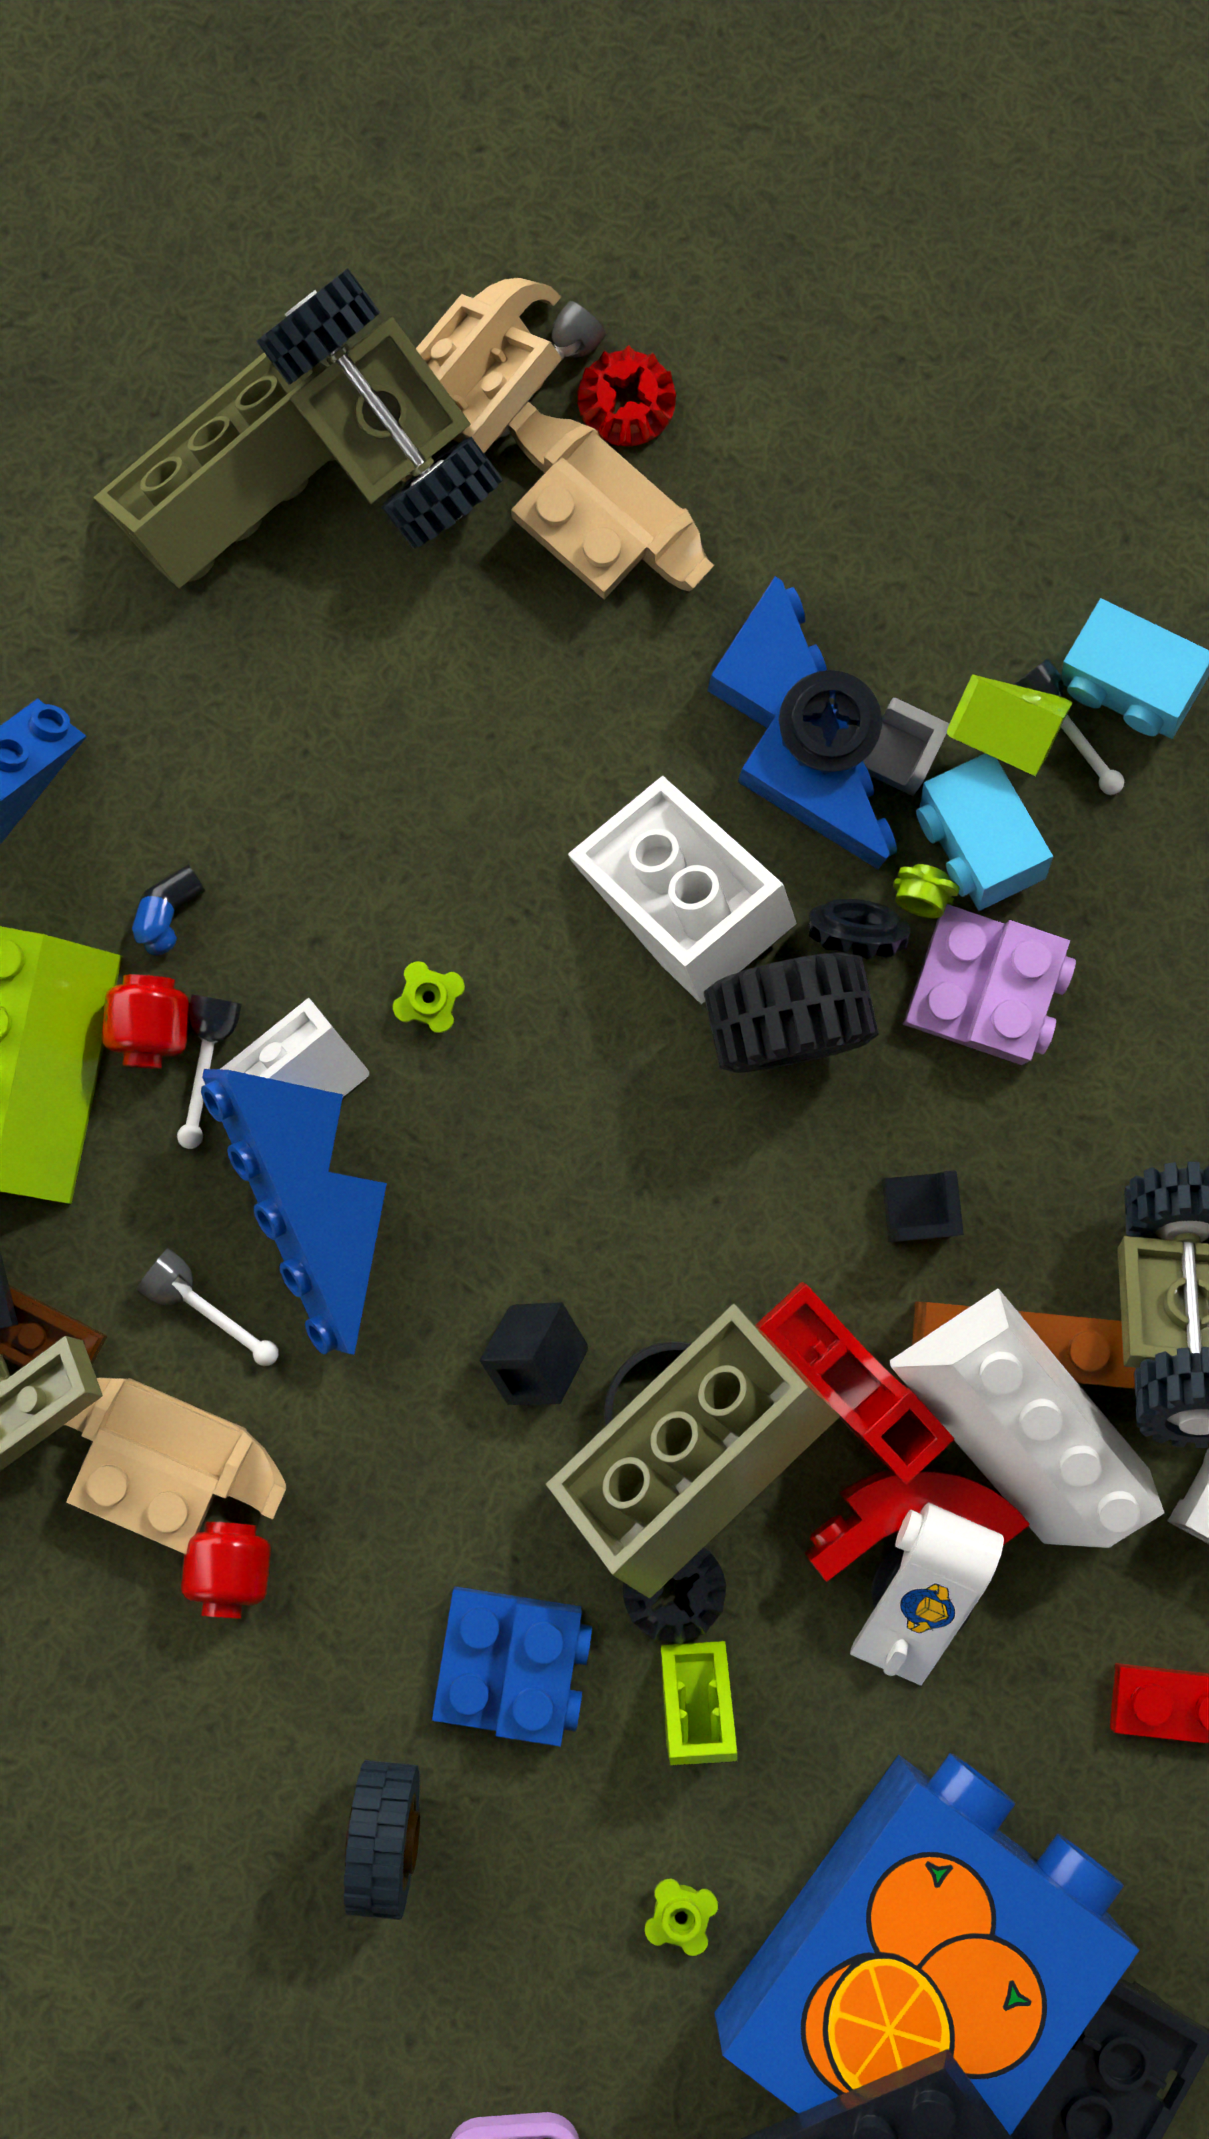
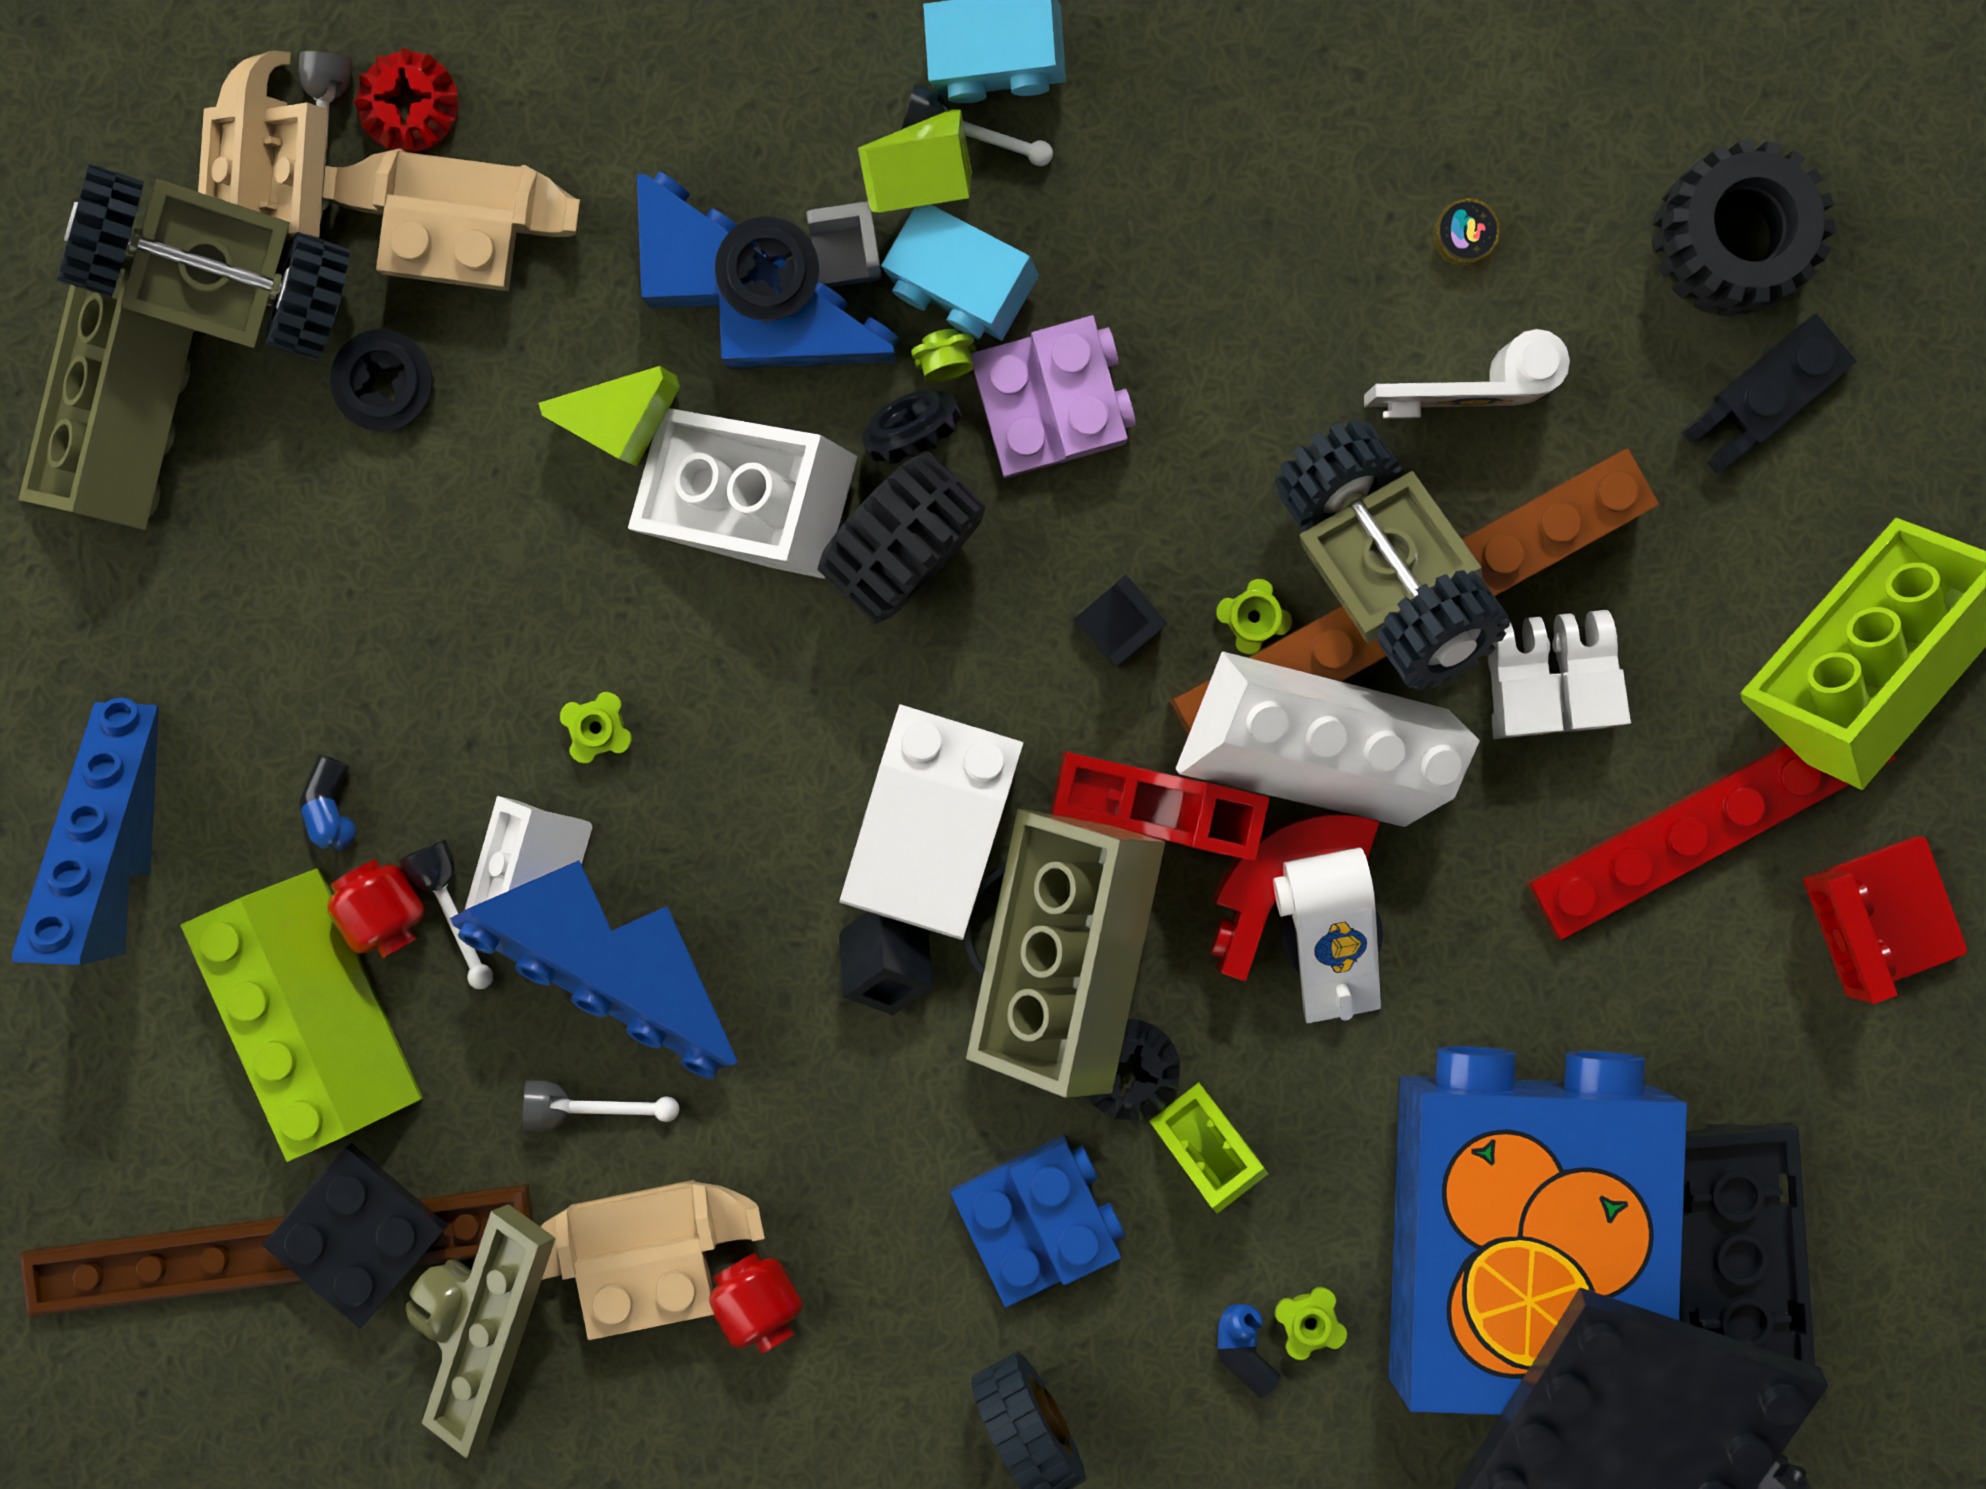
camera: 30 degrees left, 5 degrees up
(432, 580) = (353, 374): none -> black gear
(605, 1894) = (1238, 1348): none -> arm
(626, 755) = (618, 413): none -> lime slope
(653, 1265) = (931, 822): none -> white slope
(1048, 1266) = (1260, 599): none -> lime plate

